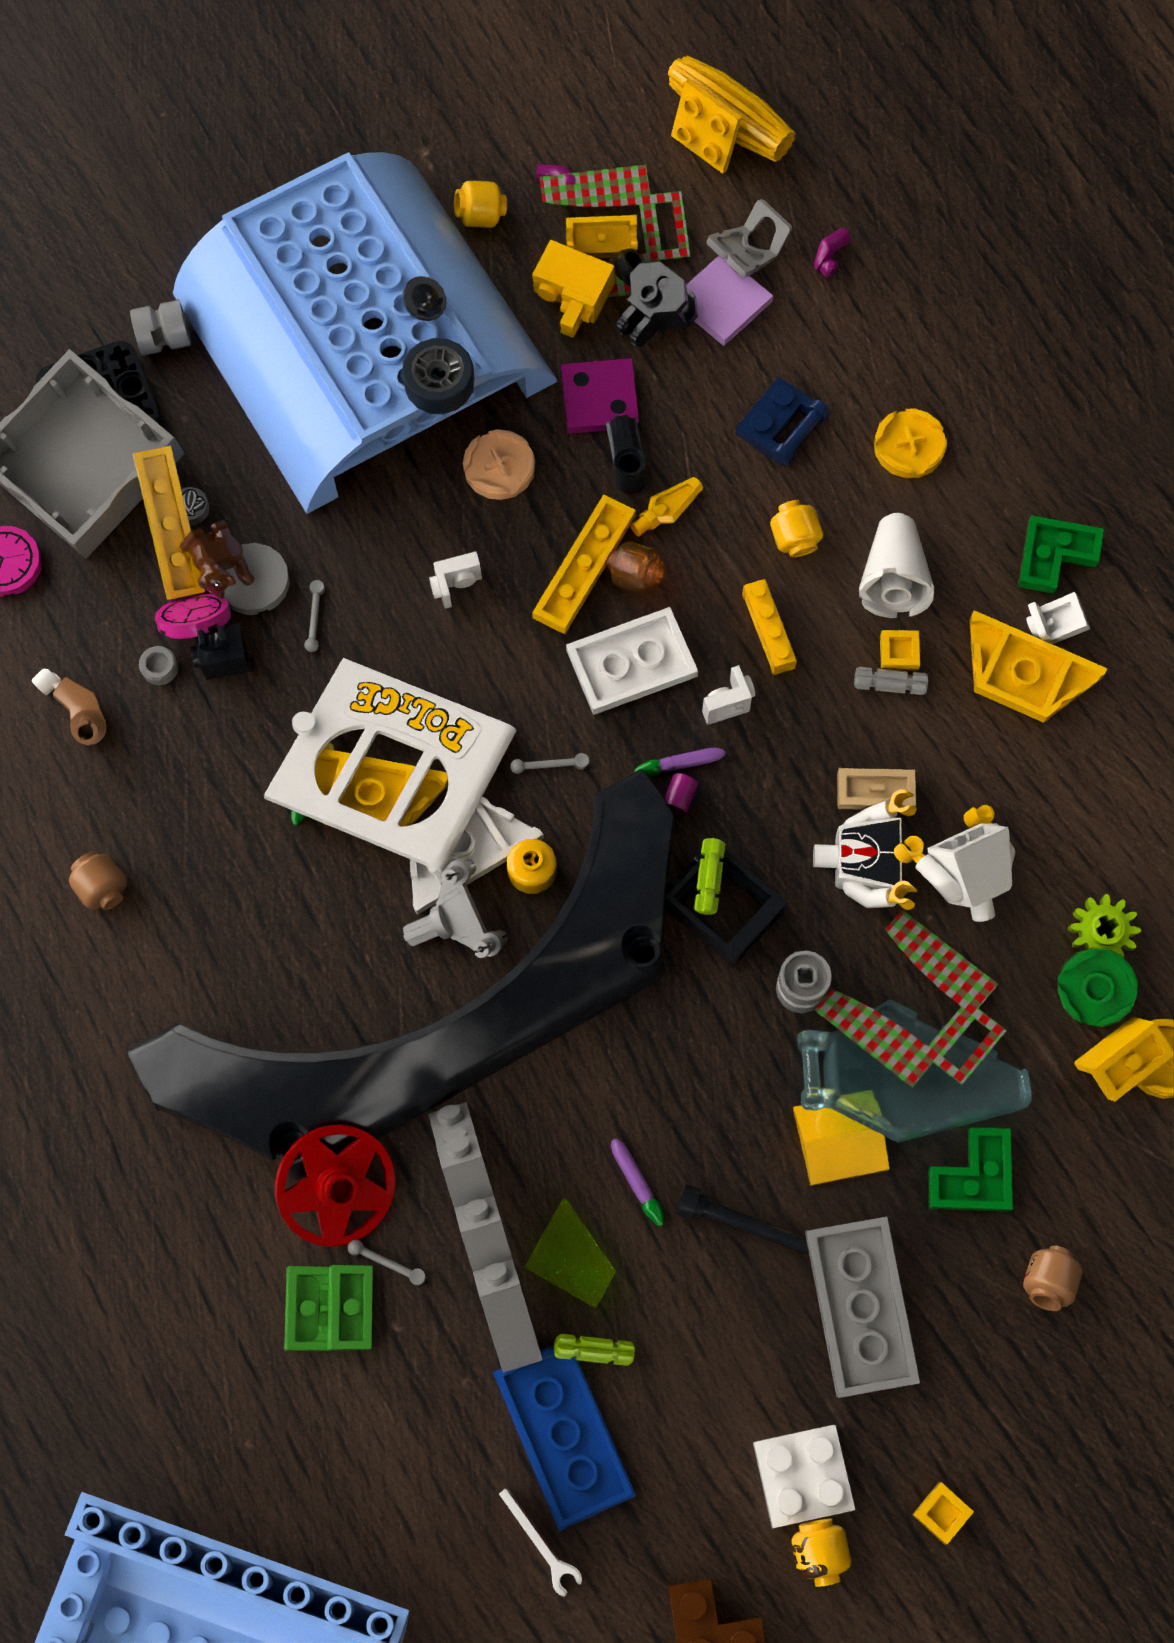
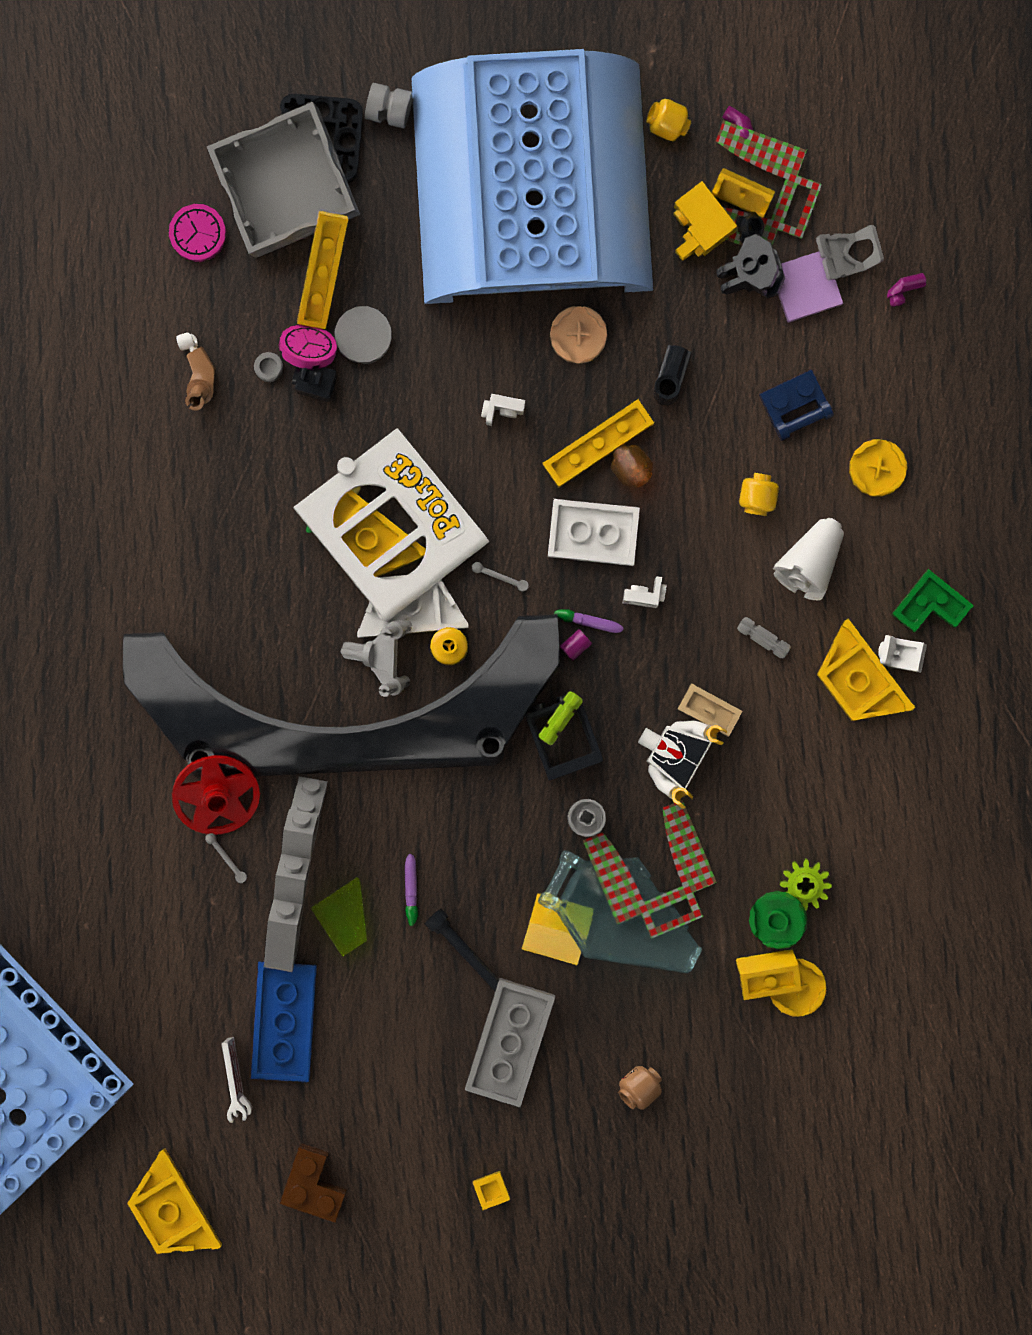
camera: 25 degrees right, 15 degrees up
(97, 881) = (157, 506): medium nougat head -> none
(195, 504) = (349, 256): tile -> none
(215, 554) = (340, 308): reddish brown animal -> none
(317, 589) = (405, 364): light grey hinge -> none
(328, 1308) = (175, 868): bright green slope -> none
(424, 298) = (576, 203): black hat -> none
(447, 361) = (569, 260): wheel -> none
(594, 1349) = (328, 981): lime axle -> none
(598, 393) = (677, 317): magenta tile -> none
(667, 506) = (680, 428): yellow piece -> none
(721, 111) = (886, 136): yellow plate -> none
(769, 627) = (701, 555): yellow piece -> none
(803, 1476) = (418, 1123): white plate -> none
(821, 1551) = (403, 1174): yellow head -> none
(900, 650) = (781, 620): yellow plate -> none
(967, 866) = (739, 798): white torso -> none
(981, 1185) = (632, 1006): green plate -> none

